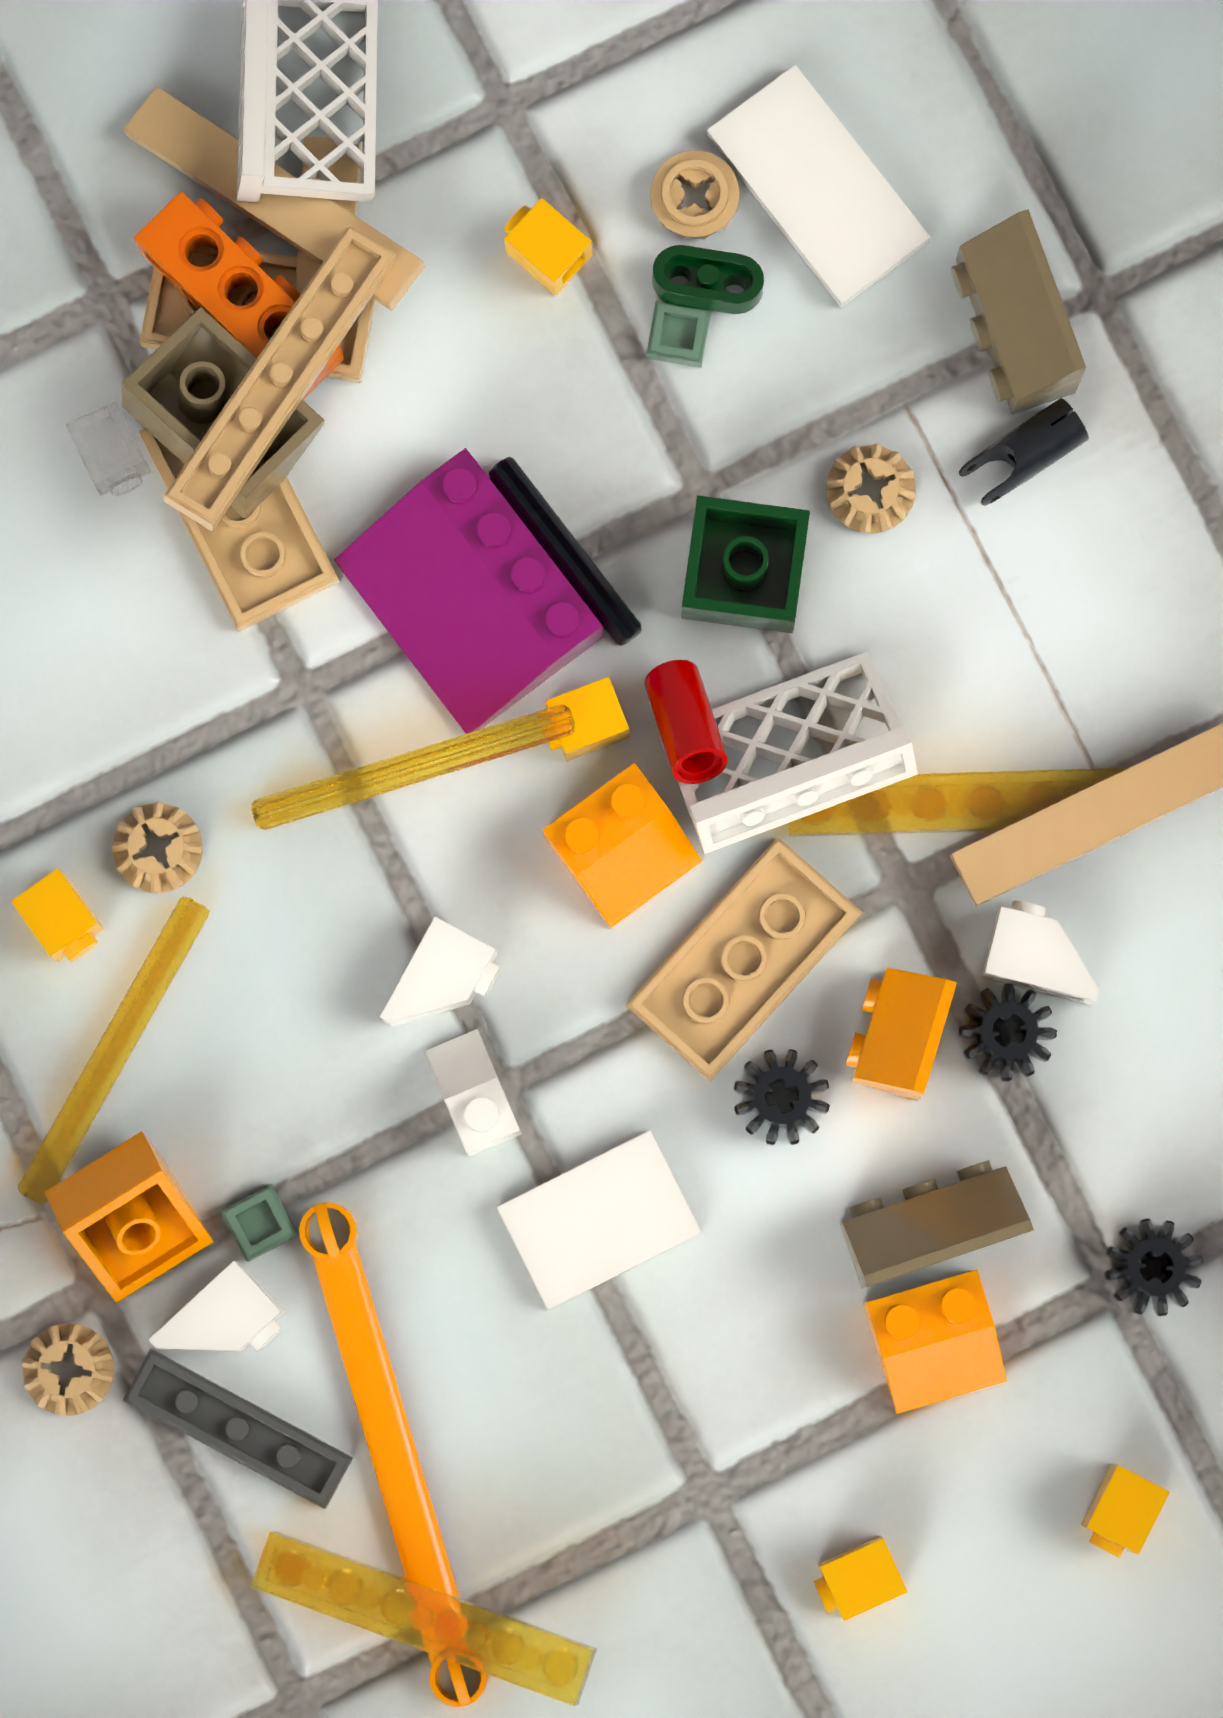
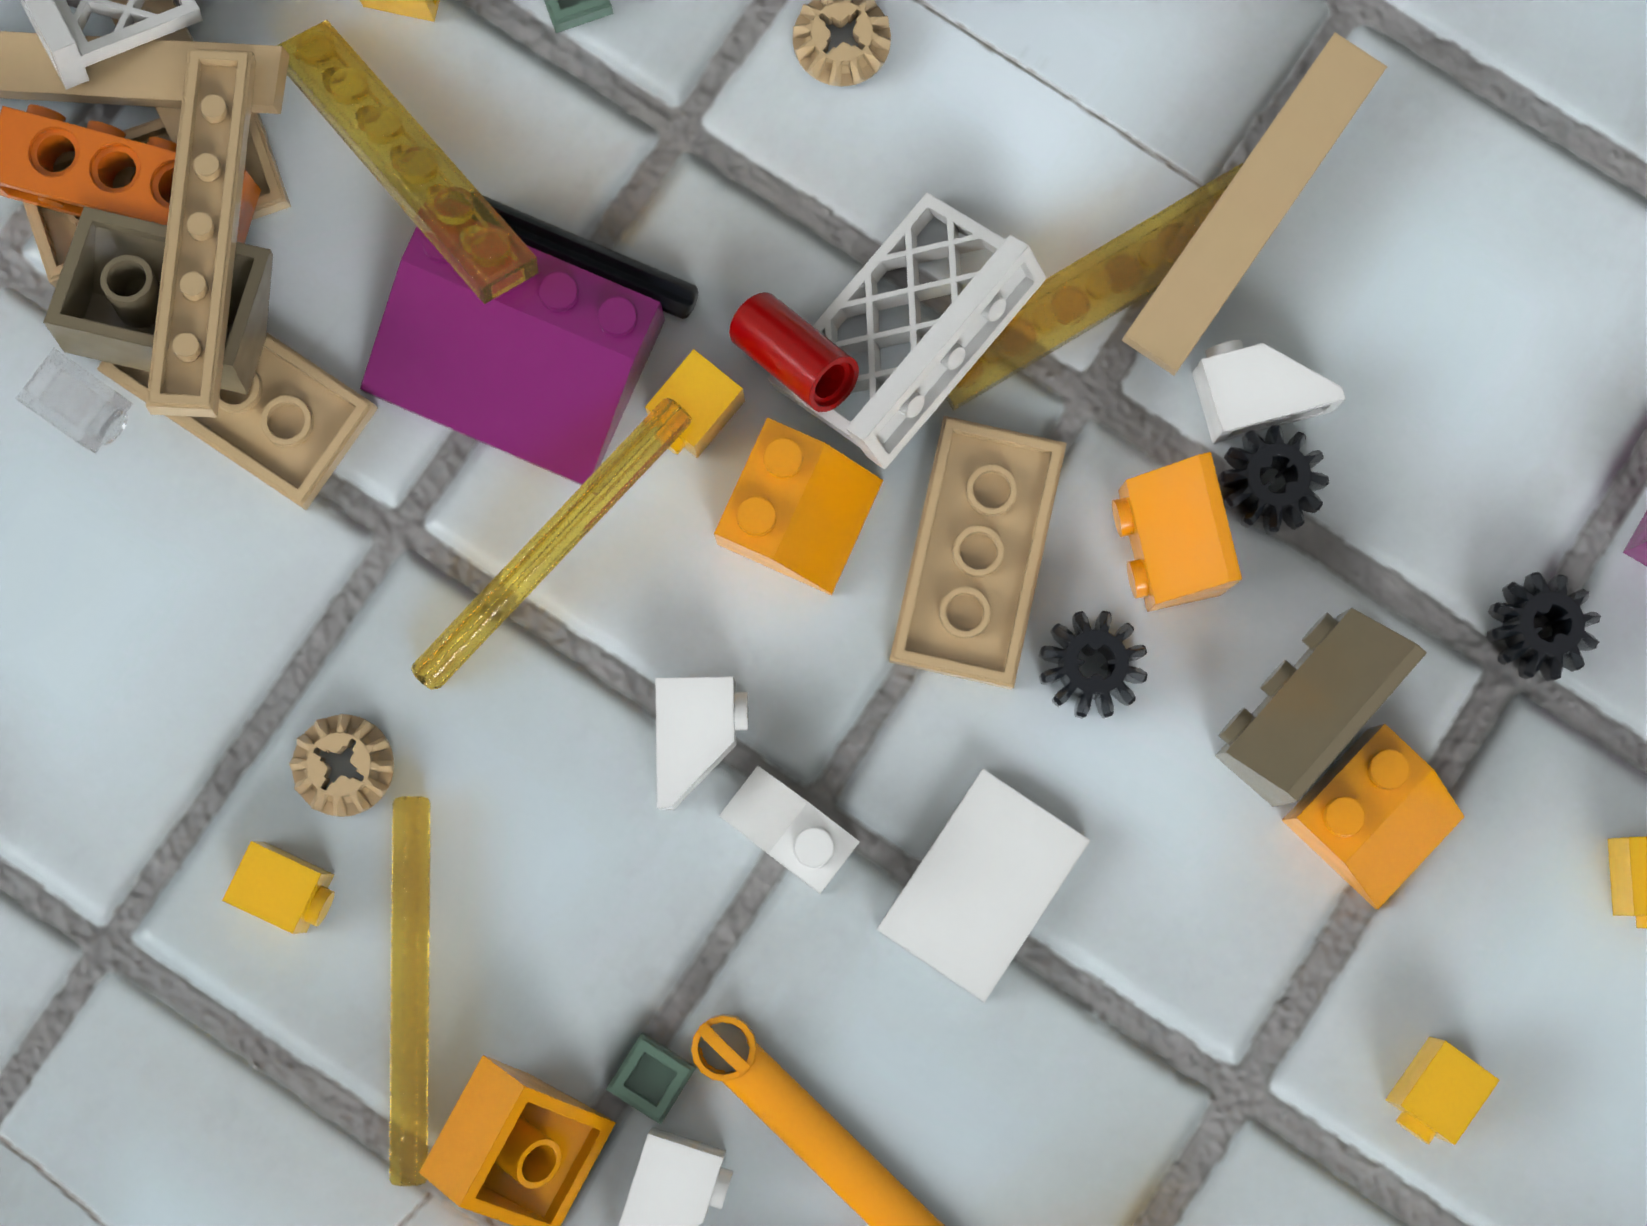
camera: 35 degrees left, 0 degrees up
(468, 405) = (408, 163): none -> clear yellow plate
(745, 564) = (765, 169): dark green brick -> none

